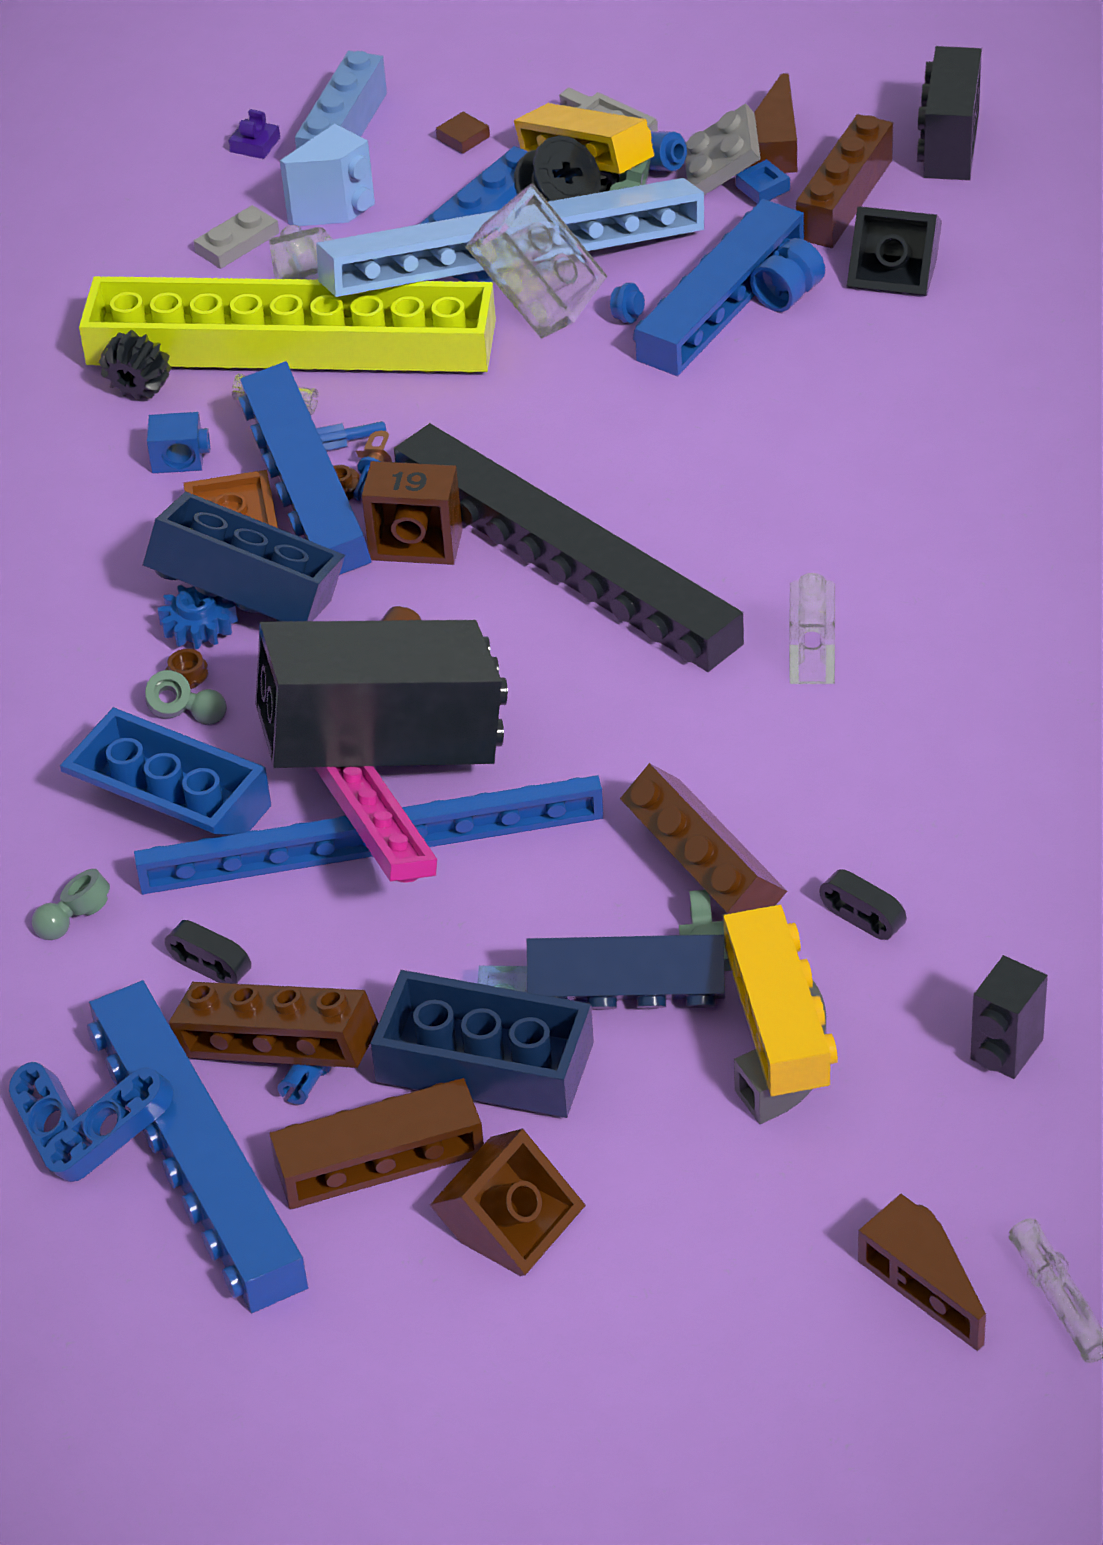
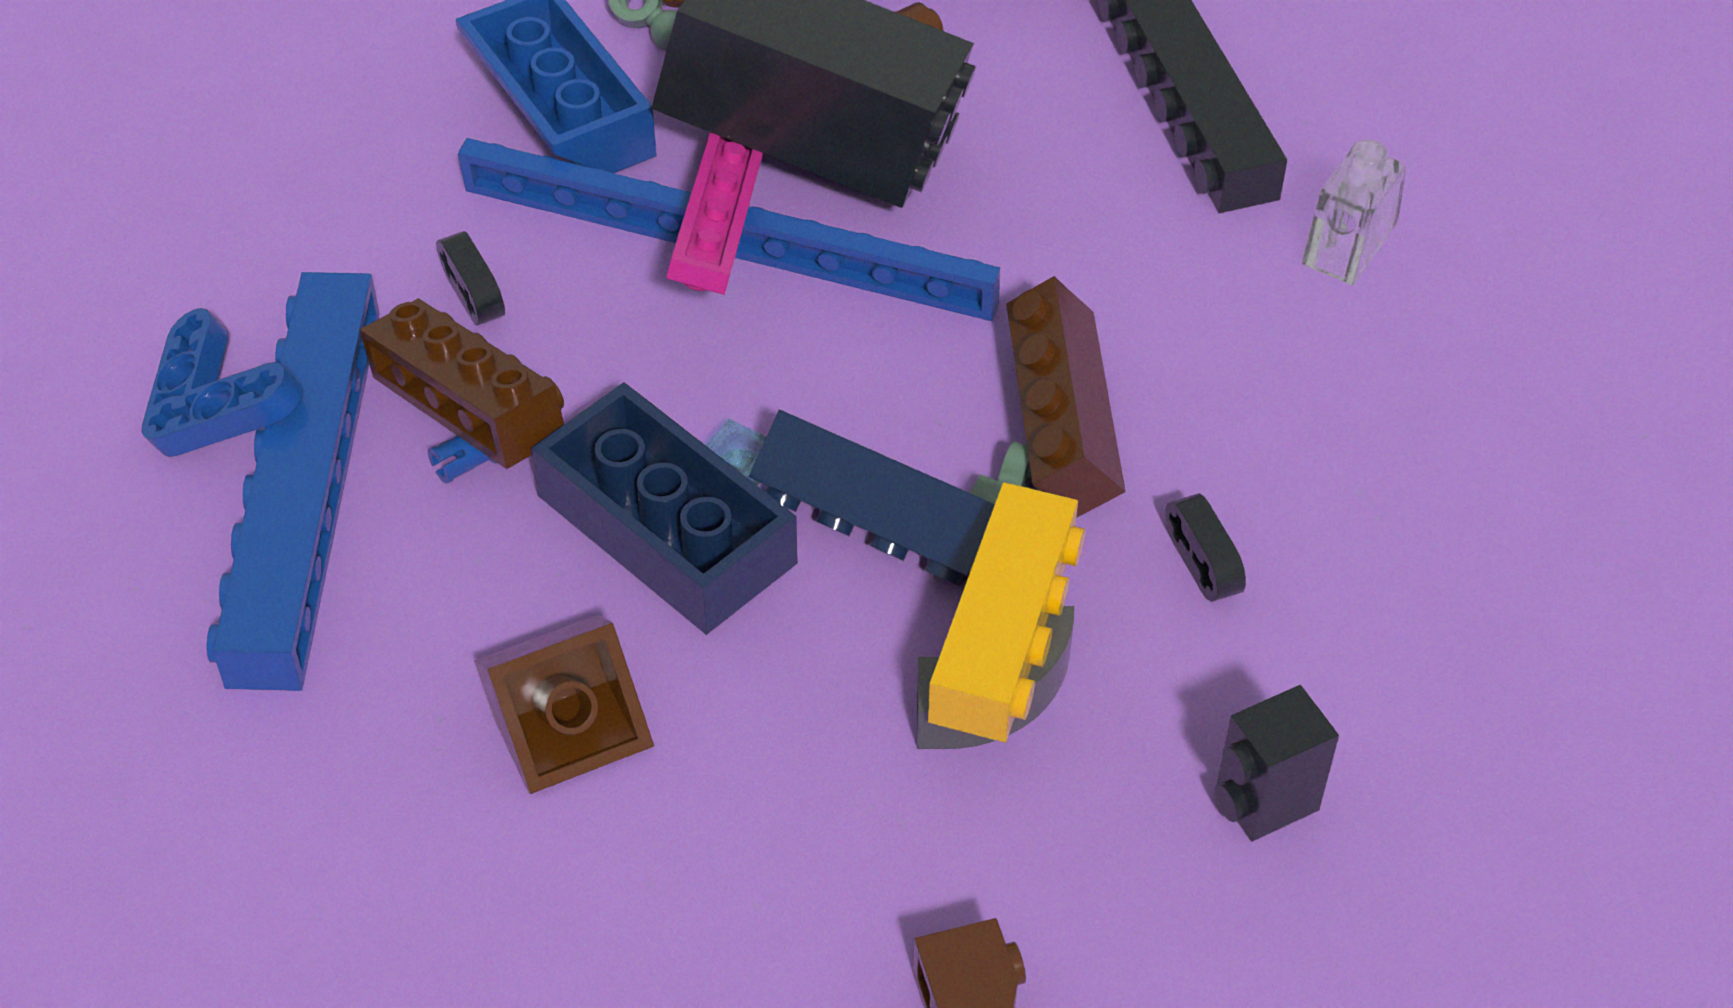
camera: 25 degrees right, 5 degrees up
(81, 896) = (401, 164): sand green plate -> none
(376, 1143) = (478, 563): reddish brown brick -> none

